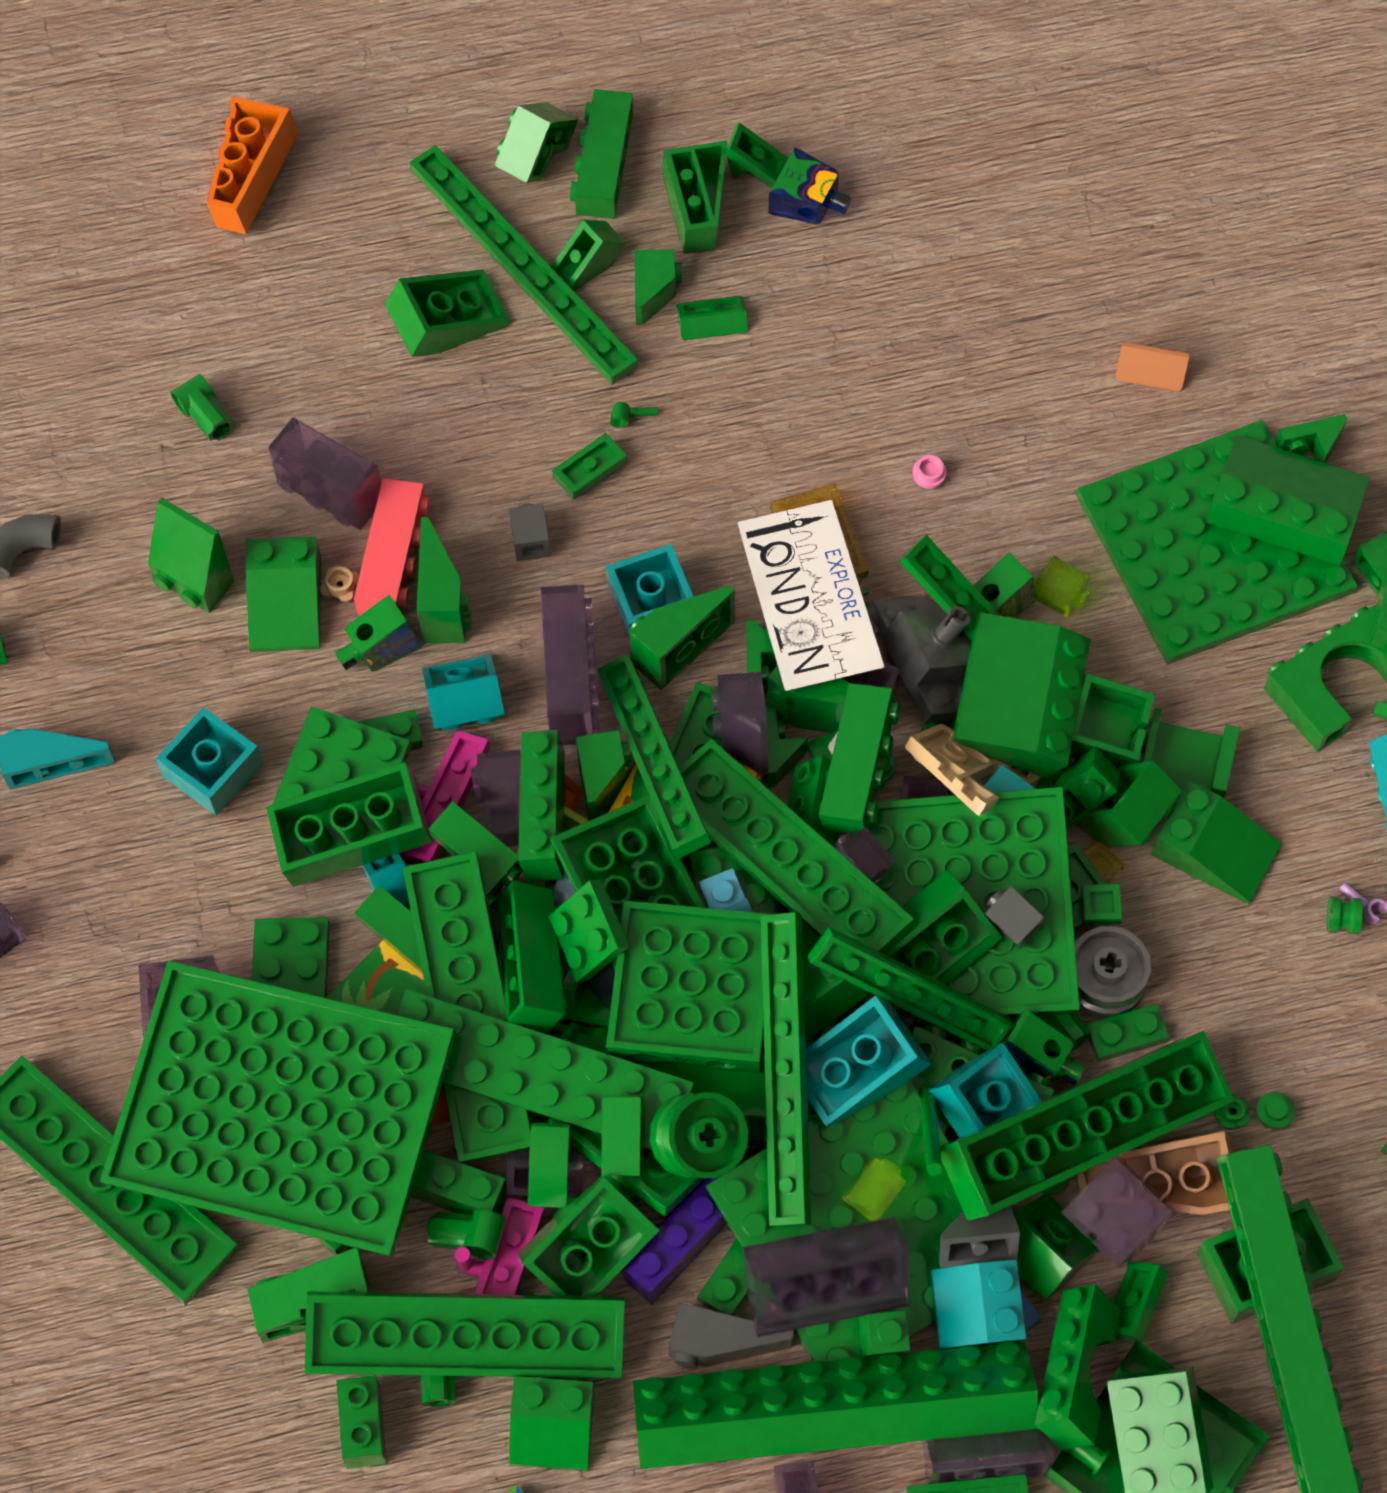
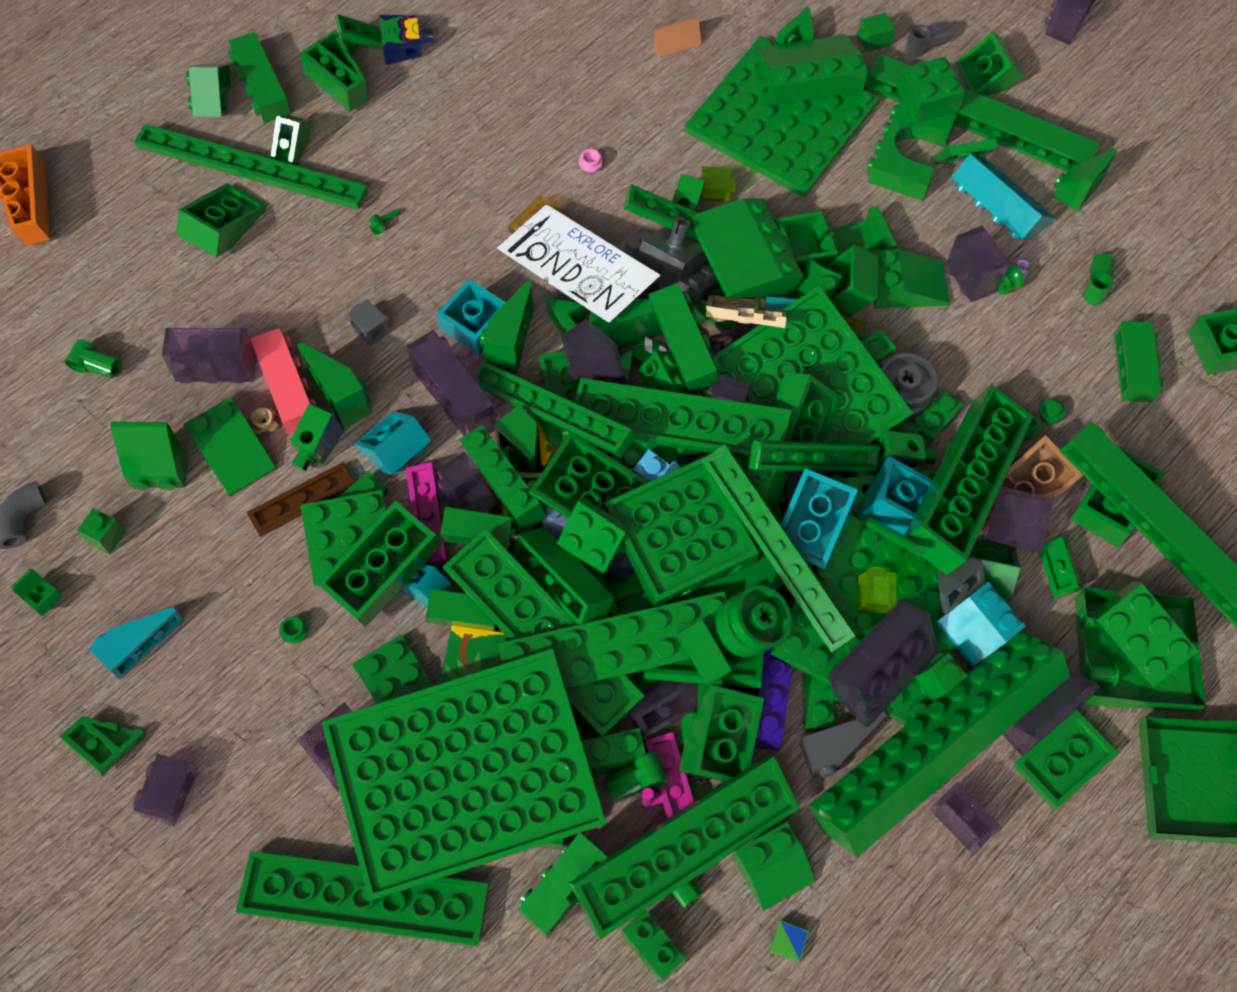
camera: 35 degrees left, 0 degrees up
(89, 612) = (101, 531): none -> green brick
(209, 761) = (252, 579): teal brick -> none
(218, 843) = (293, 630): none -> green plate
(343, 699) = (287, 505): none -> reddish brown tile
(549, 1165) = (665, 700): green slope -> none
(589, 466) = (379, 264): green plate -> none
(654, 281) = (343, 135): green slope -> none
(712, 317) = (394, 140): green slope -> none
(1014, 916) = (843, 377): dark grey brick -> none
(1067, 1402) = (1079, 647): green arch -> none
(1309, 872) = (976, 264): none -> clear purple brick

